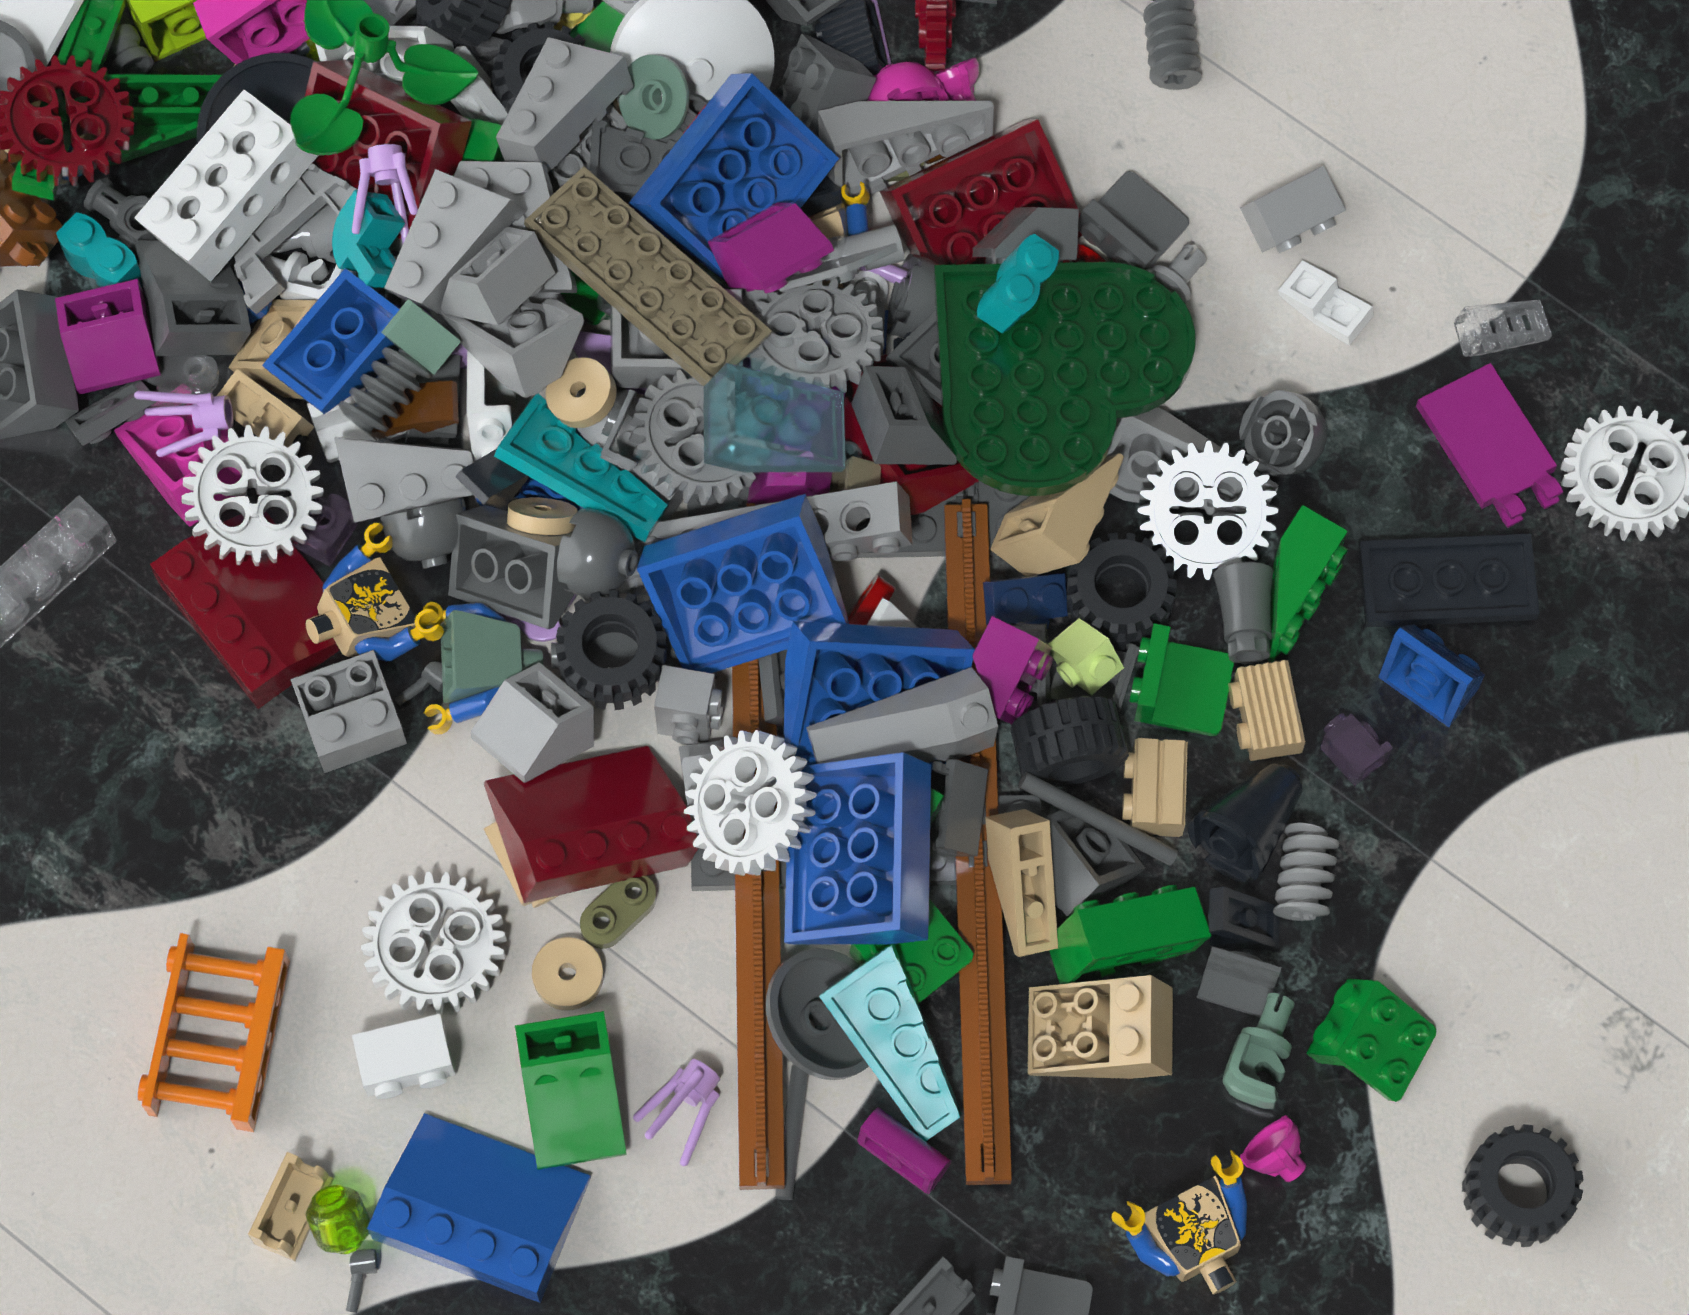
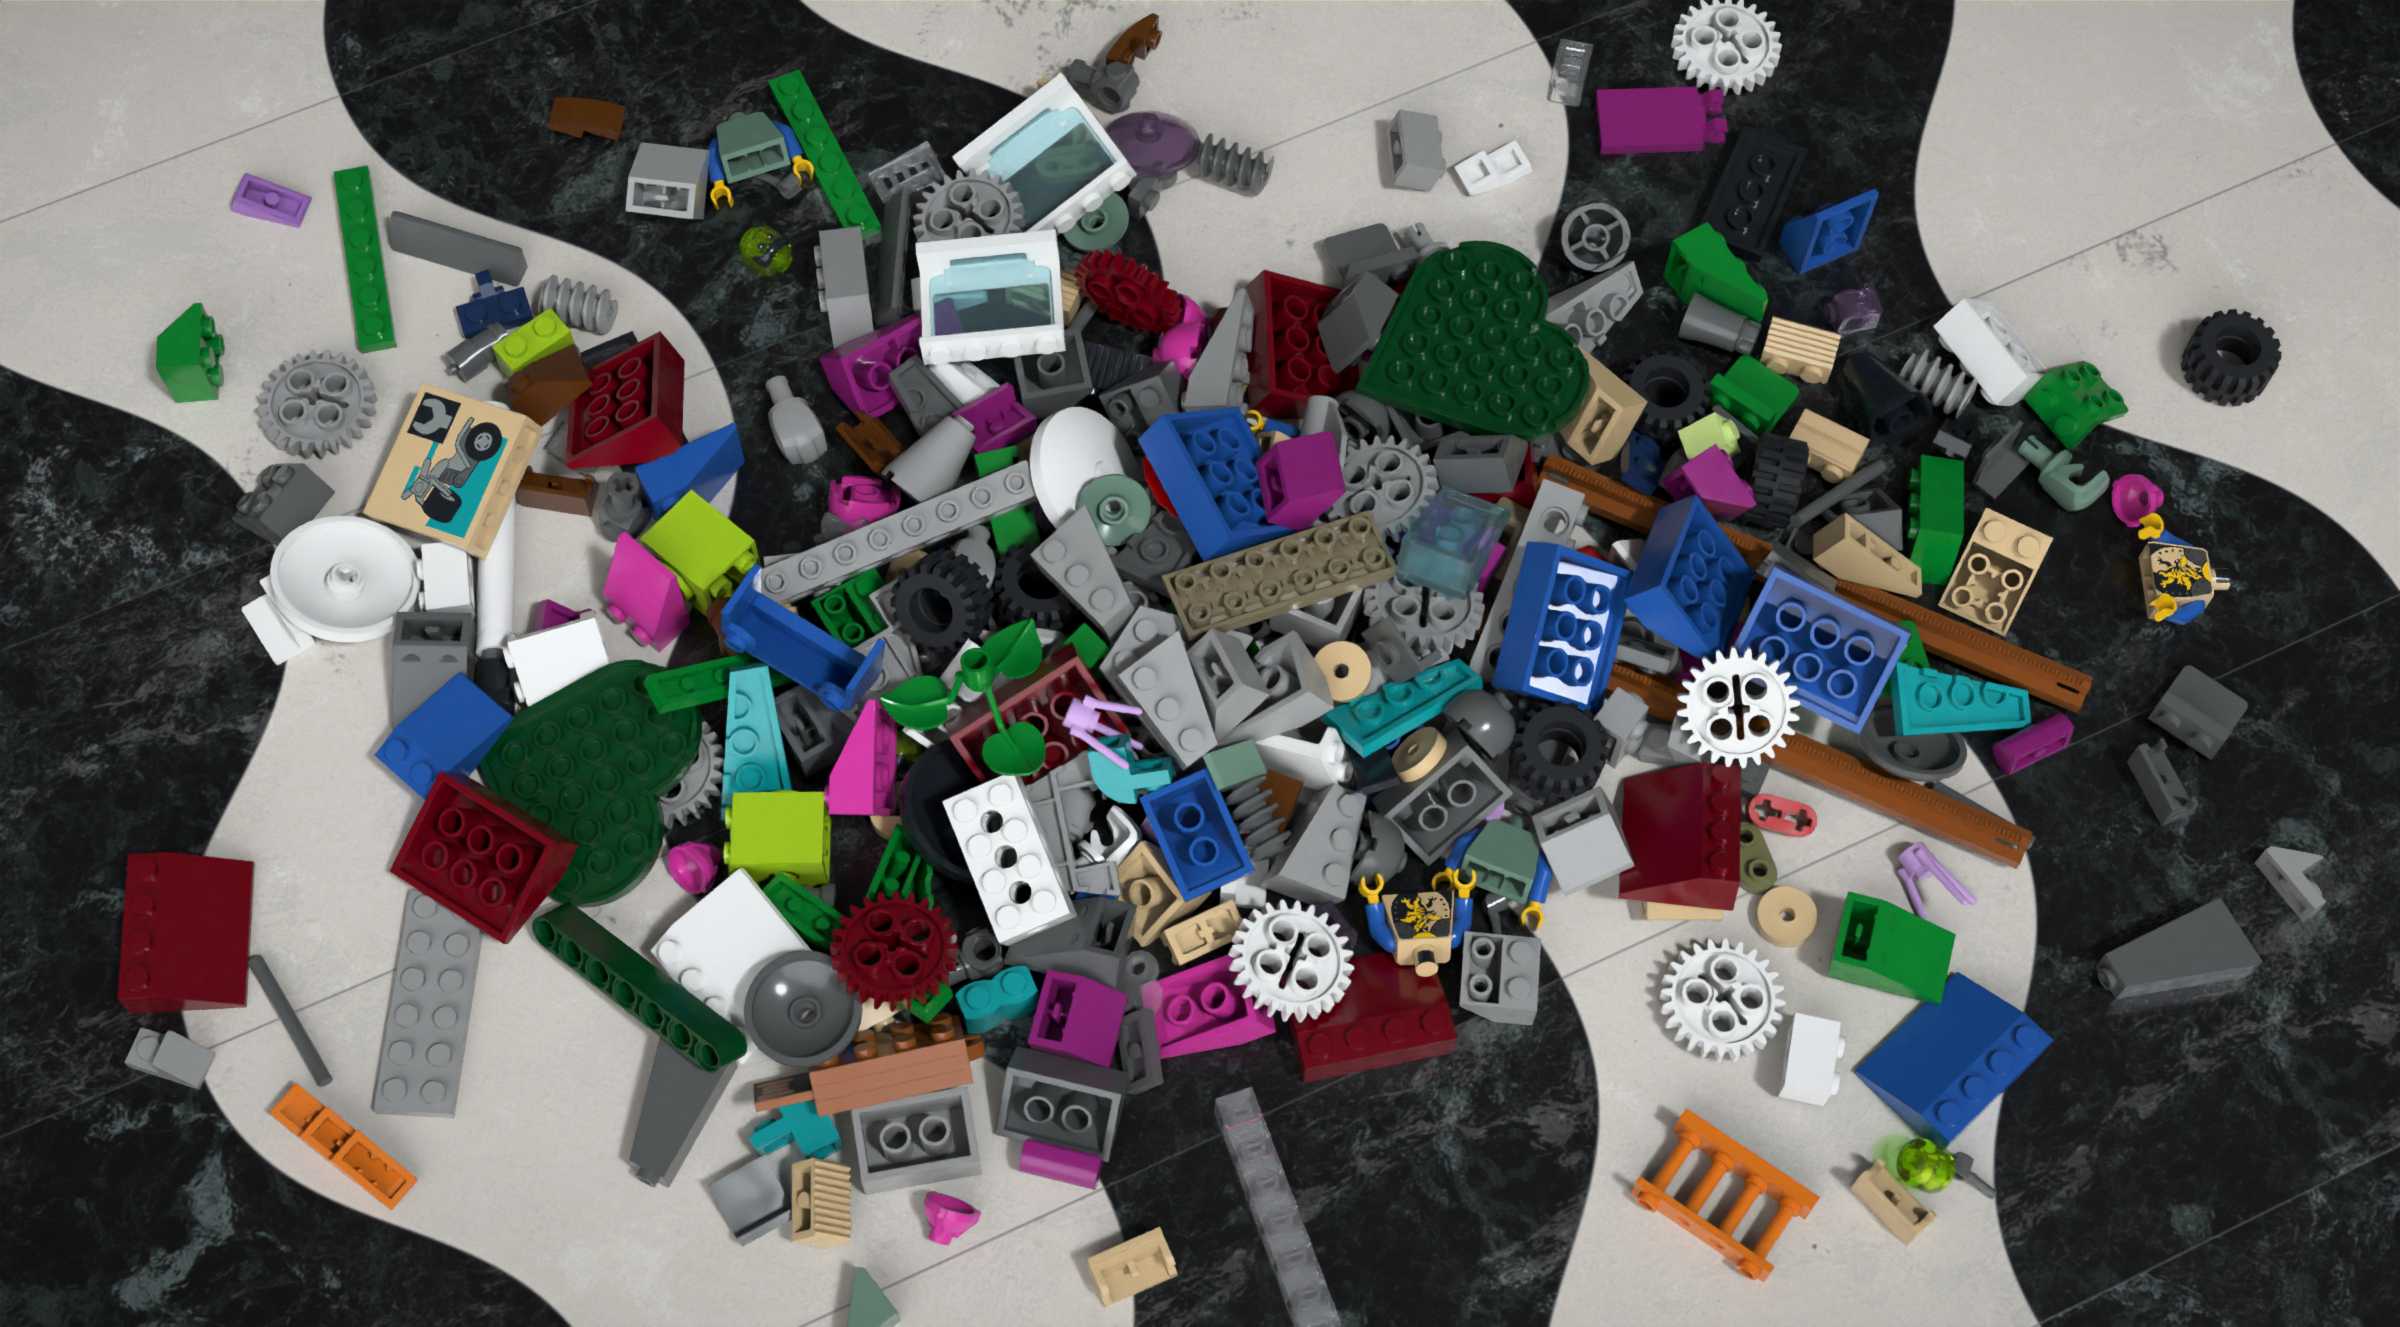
camera: 65 degrees left, 5 degrees down
(206, 411) = (1197, 965): lavender plant -> none
(669, 921) = (1782, 806): none -> beam
(928, 722) = (1732, 556): light grey wedge -> none
(1018, 283) = (1414, 331): teal brick -> none
(1208, 470) = (1606, 293): gear -> none
(1386, 917) = (1990, 351): none -> white slope

